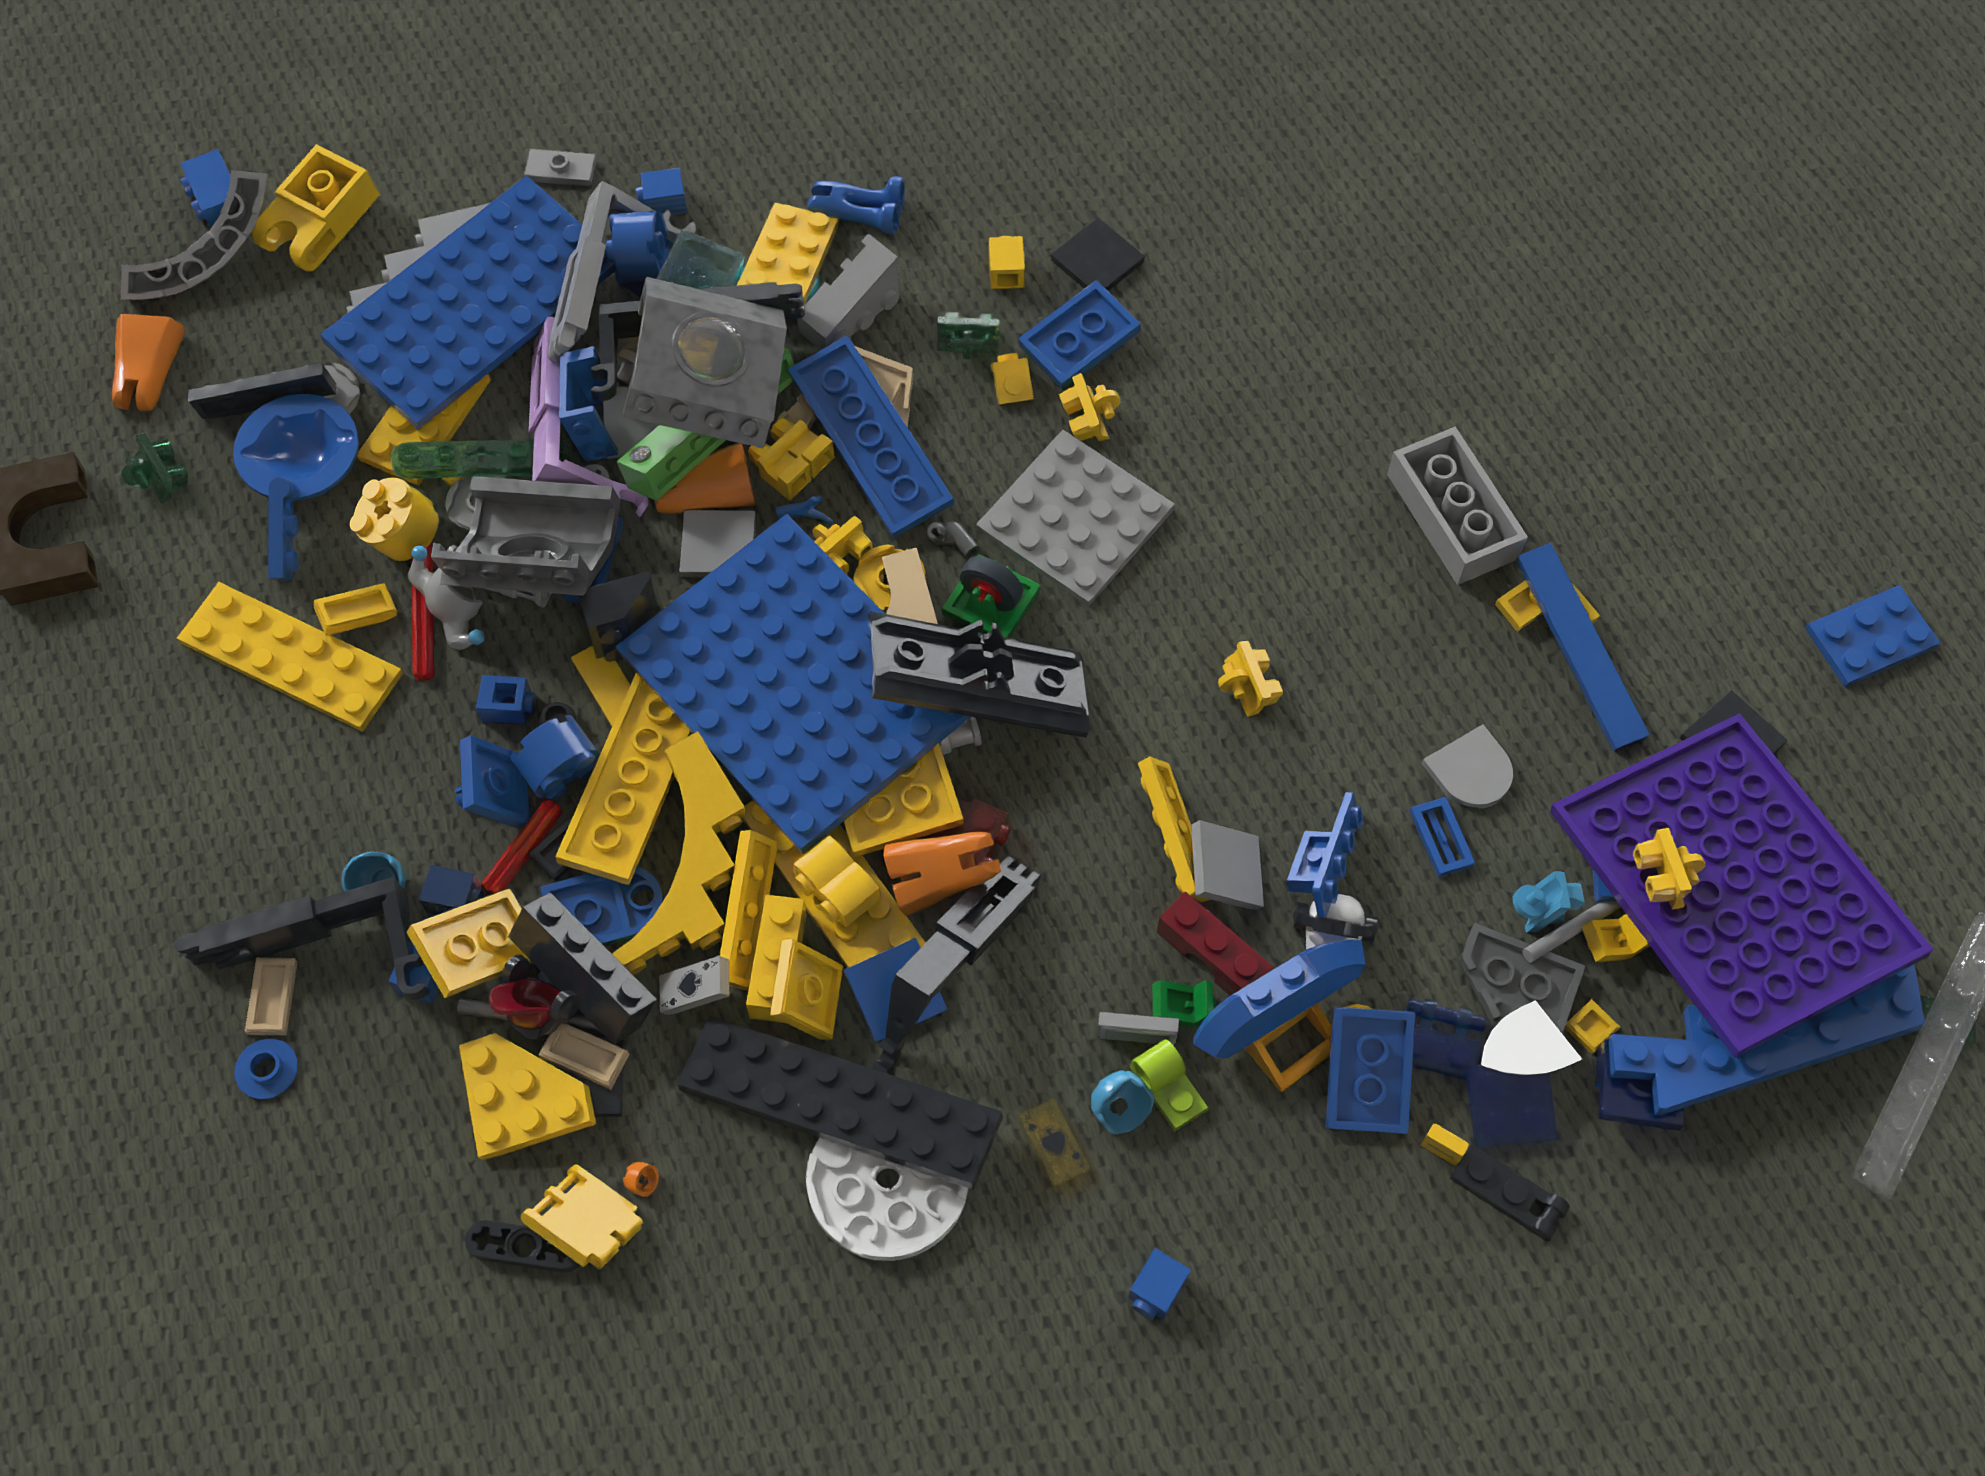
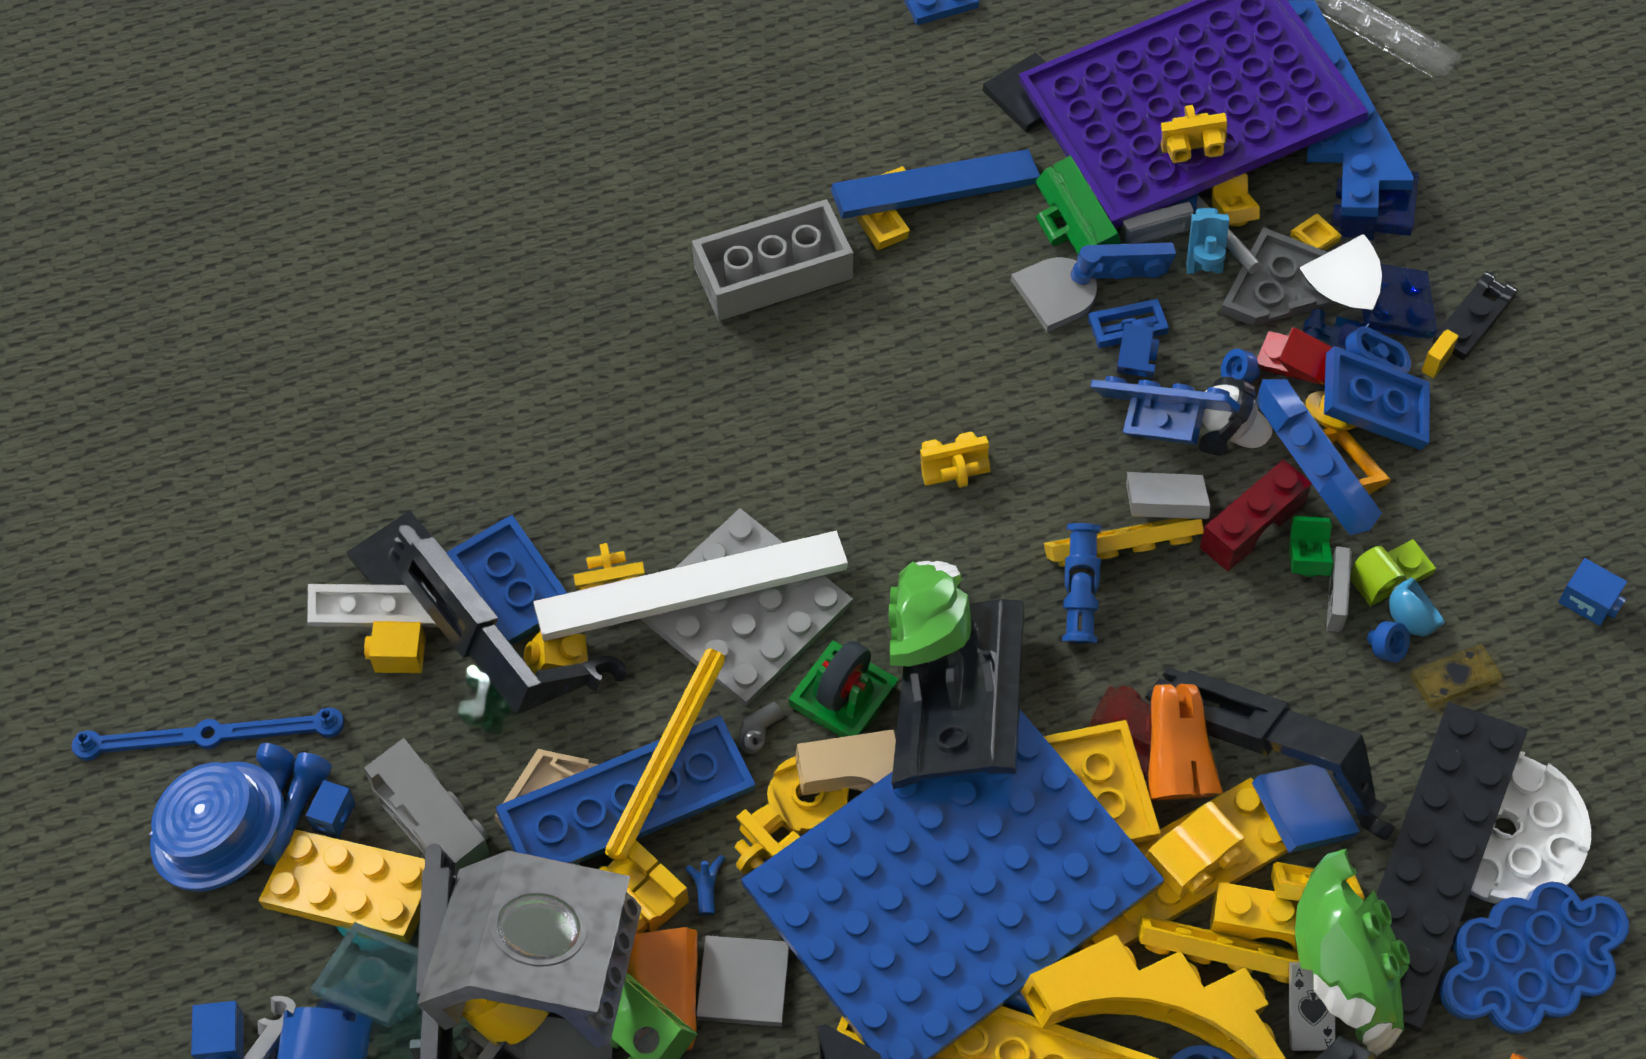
camera: 85 degrees left, 5 degrees down
(724, 1004) = (1352, 953): none -> bright green animal
(749, 1194) = (1534, 958): none -> blue plate
(835, 160) = (215, 824): none -> blue piece
(851, 231) = (328, 808): none -> blue piece
(907, 454) = (664, 755): none -> yellow axle
(937, 228) = (89, 744): none -> blue piece
(1002, 304) = (472, 628): none -> black hinge
(1041, 247) = (362, 604): none -> white plate
(1044, 633) = (927, 613): none -> bright green animal
(1081, 467) = (689, 585): none -> white tile
(1082, 1076) = (1389, 641): none -> blue tile
(1108, 785) = (1080, 599): none -> blue piece
(1396, 942) = (1240, 365): none -> blue tile
(1399, 837) = (1137, 349): none -> blue brick
(1414, 988) = (1294, 356): none -> red slope
(1431, 1073) = (1378, 348): none -> blue plate
(1509, 821) = (1122, 261): none -> blue plate
(1538, 793) = (1076, 204): none -> green piece
(1569, 856) = (1157, 224): none -> light grey tile

